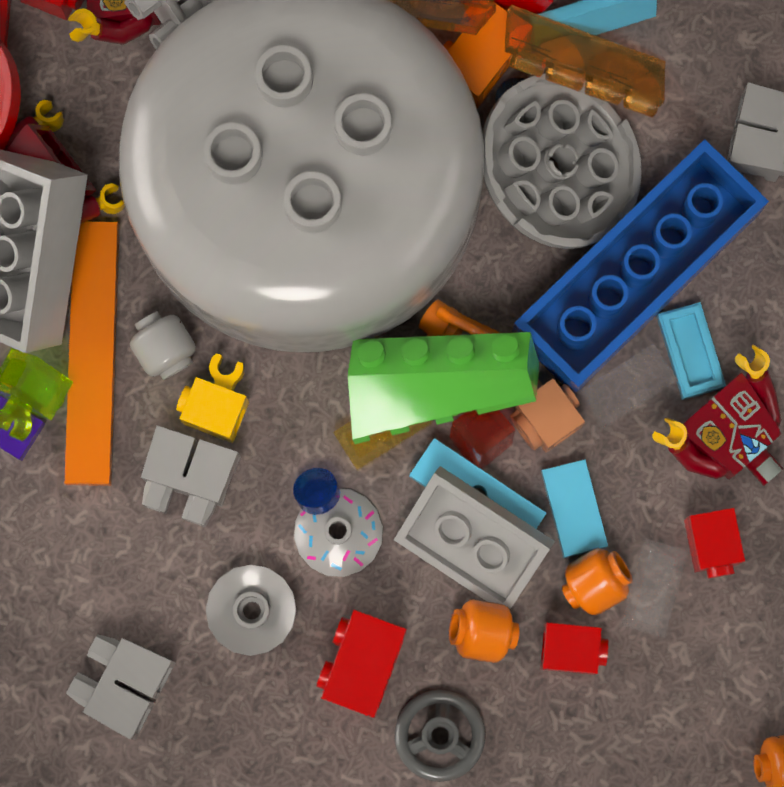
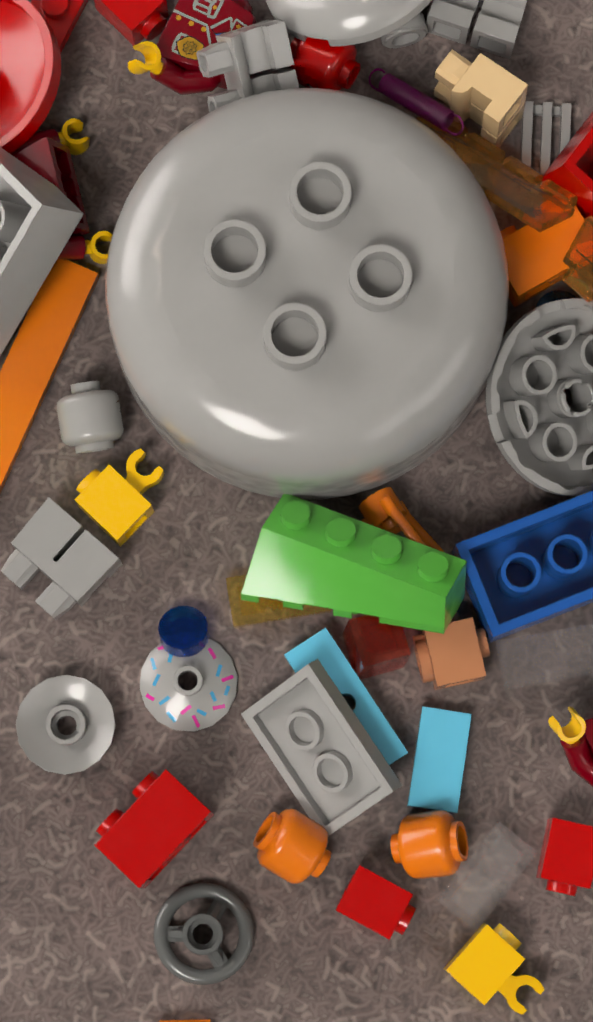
camera: 20 degrees right, 0 degrees up
(687, 661) = (487, 966): none -> yellow brick

